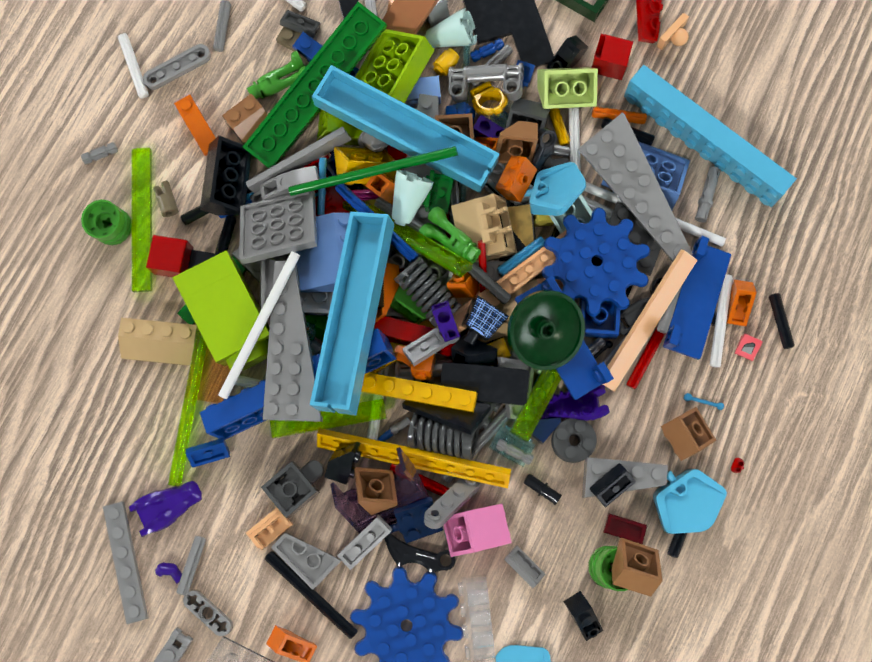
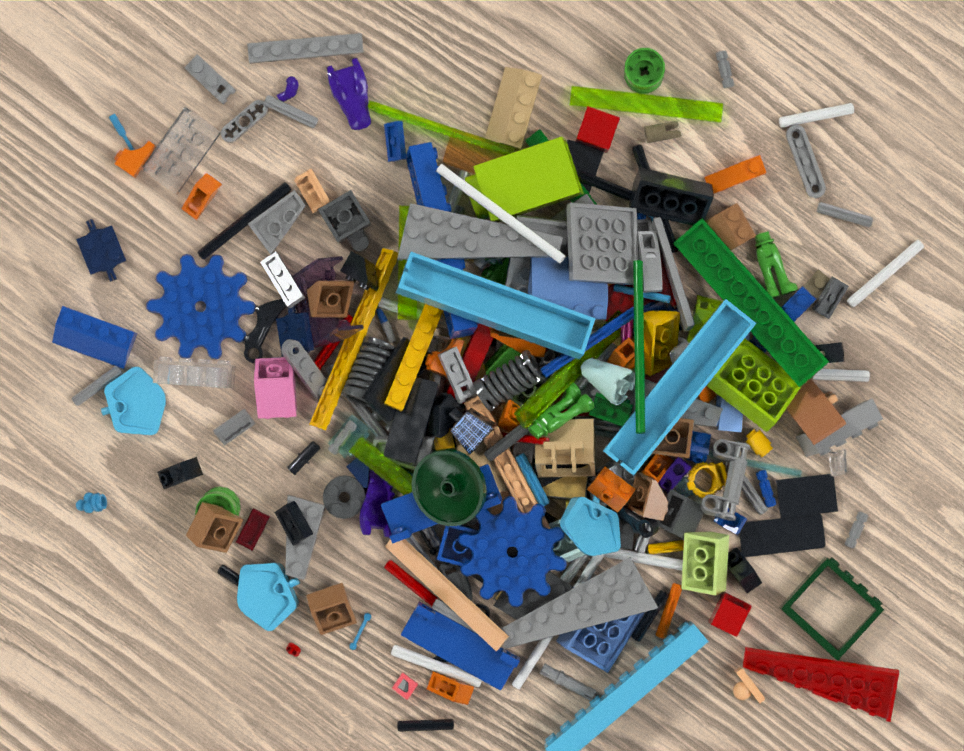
camera: 90 degrees right, 10 degrees up
(445, 321) = (474, 392): dark purple leg -> none
(453, 31) = (788, 455): light aqua cone -> none

